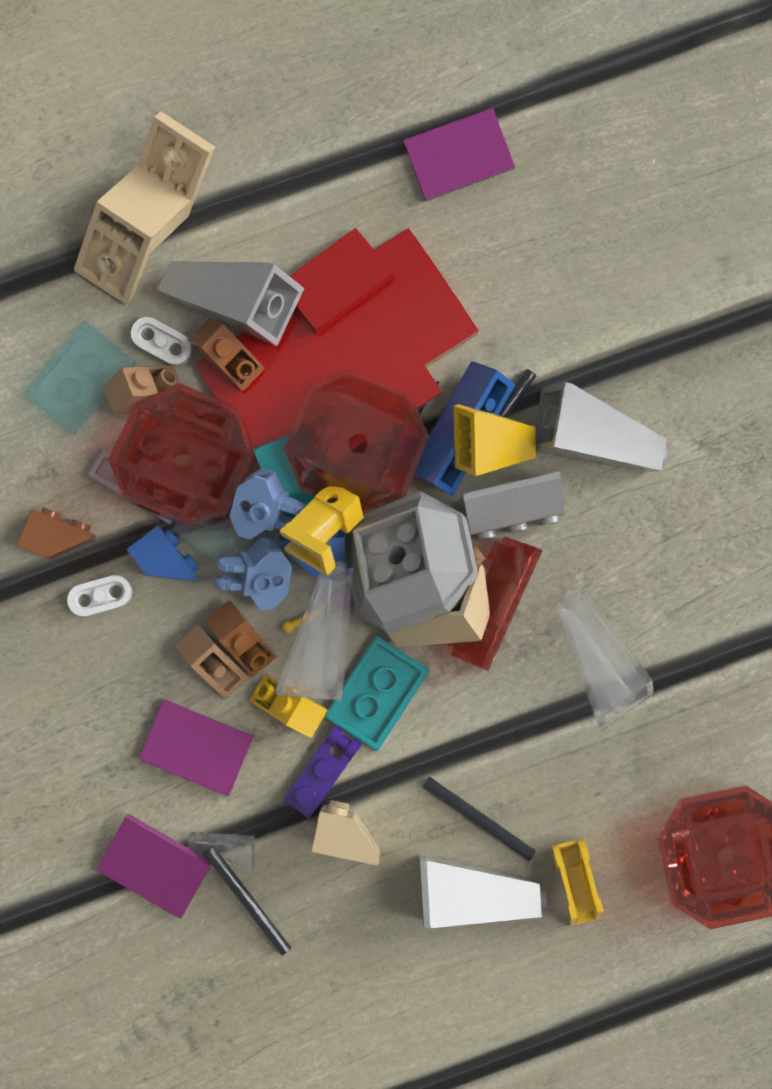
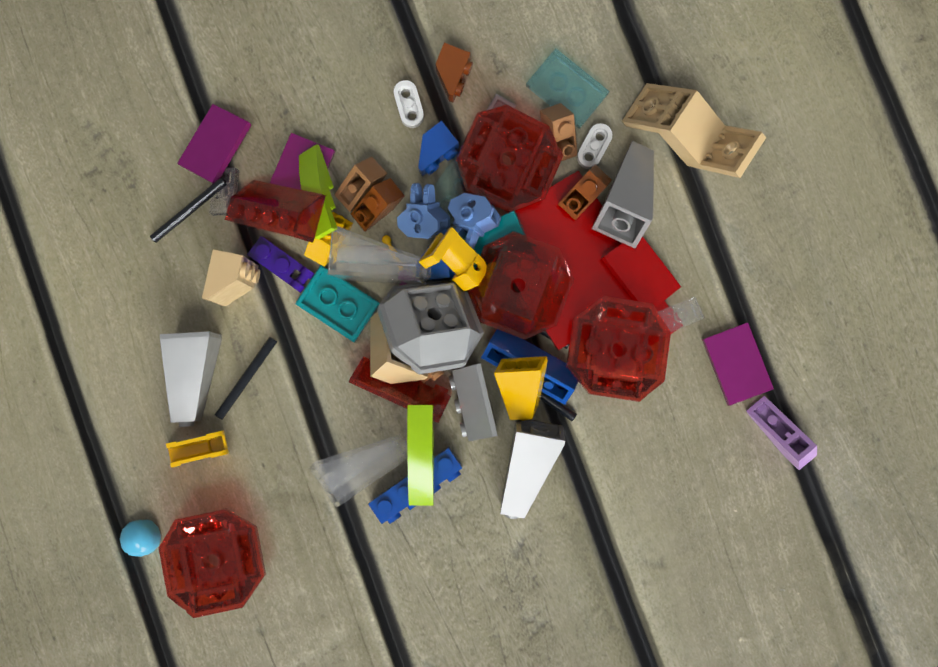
camera: 90 degrees right, 0 degrees up
(226, 719) = (316, 179): none -> lime slope
(251, 772) = (277, 210): none -> clear red slope
(395, 232) = (681, 314): none -> clear plate
(448, 277) = (644, 346): none -> clear red piece
(551, 97) = (783, 433): none -> lavender slope
(586, 573) = (420, 455): none -> lime slope
(623, 584) = (395, 499): none -> blue brick
(696, 960) = (140, 537): none -> medium azure hair

